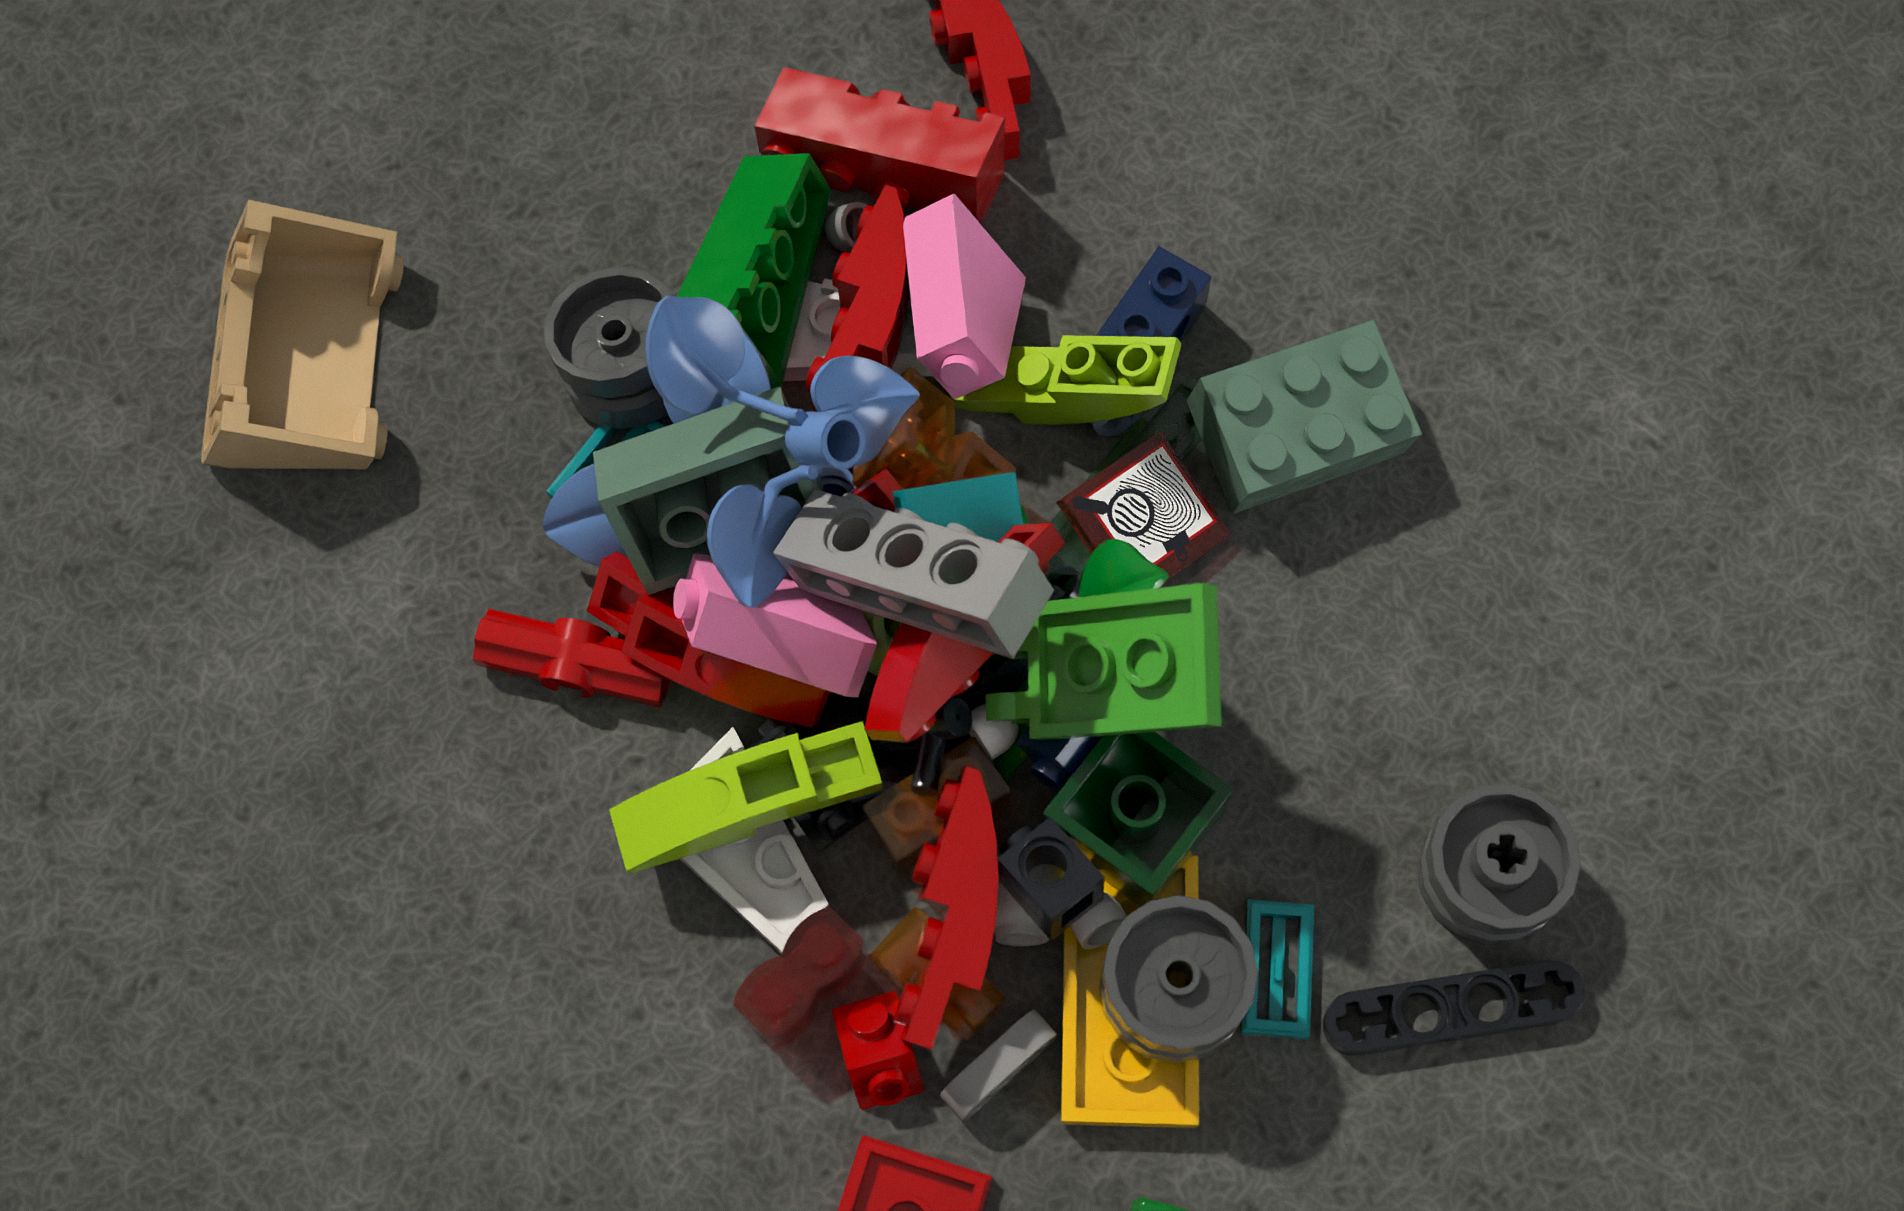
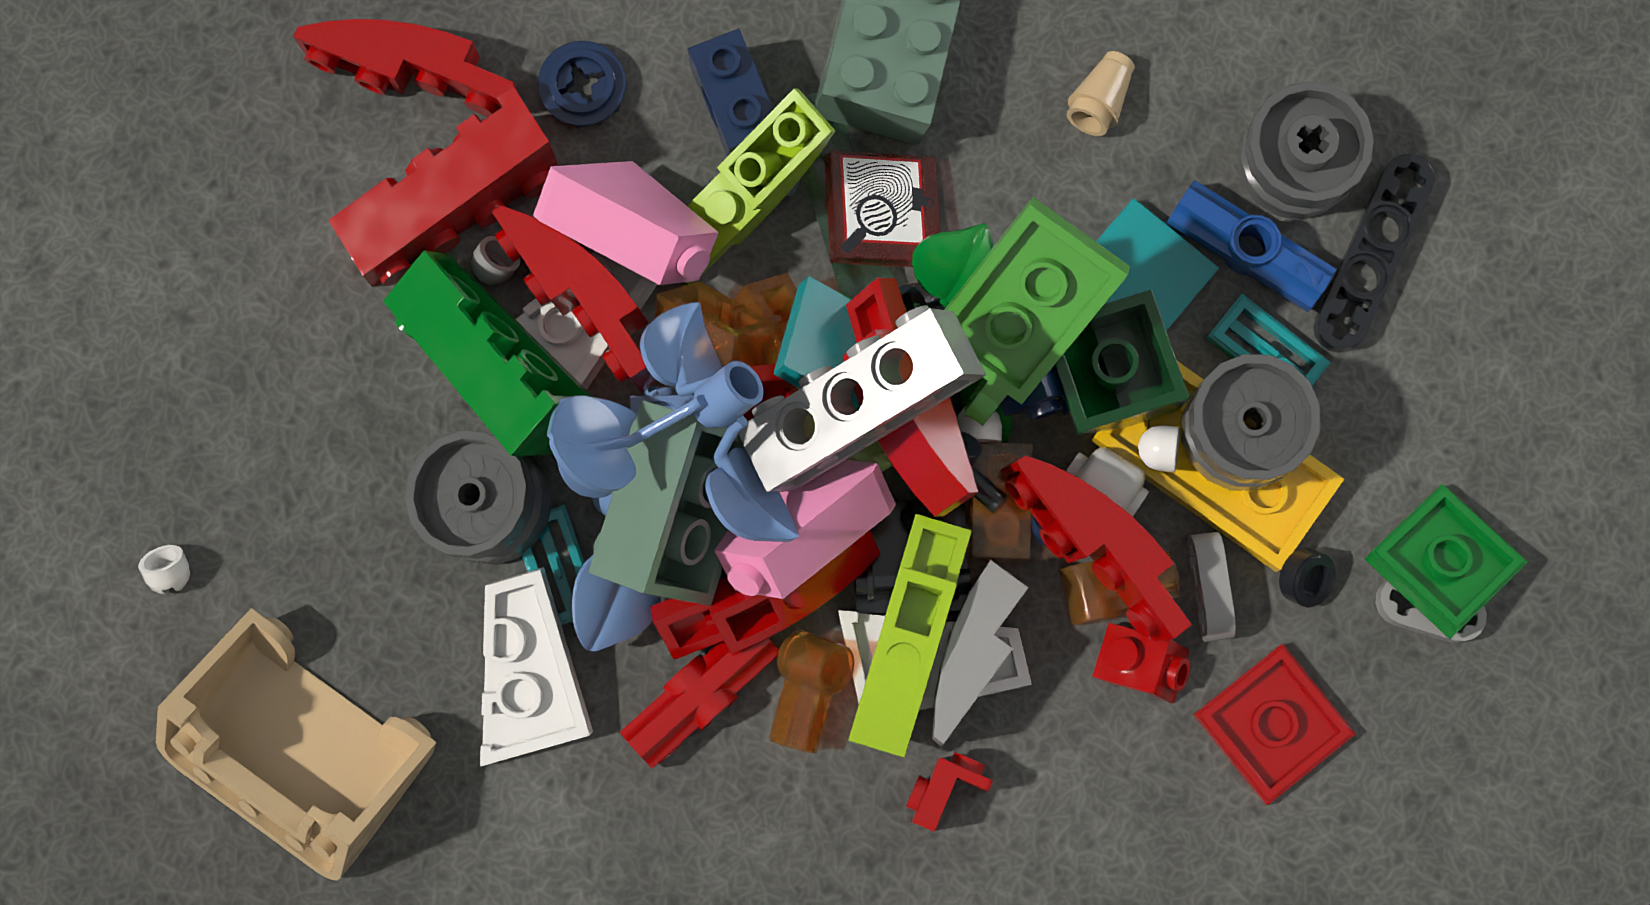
camera: 60 degrees left, 10 degrees up
(391, 152) = (165, 569): none -> white hinge
(489, 503) = (529, 675): none -> white wing
(615, 930) = (931, 794): none -> red bracket
(638, 748) = (812, 674): none -> clear orange piece
(770, 865) = (973, 649): none -> light grey slope
(814, 966) = (1064, 699): clear red brick -> none
(1056, 904) = (1142, 441): black brick -> none
(1059, 172) = (593, 61): none -> dark blue gear
(1074, 1155) = (1307, 577): none -> black tile
(1276, 797) = (1157, 261): none -> teal tile
(1366, 920) = (1282, 267): none -> blue piece
(1406, 643) = (1101, 95): none -> tan cone

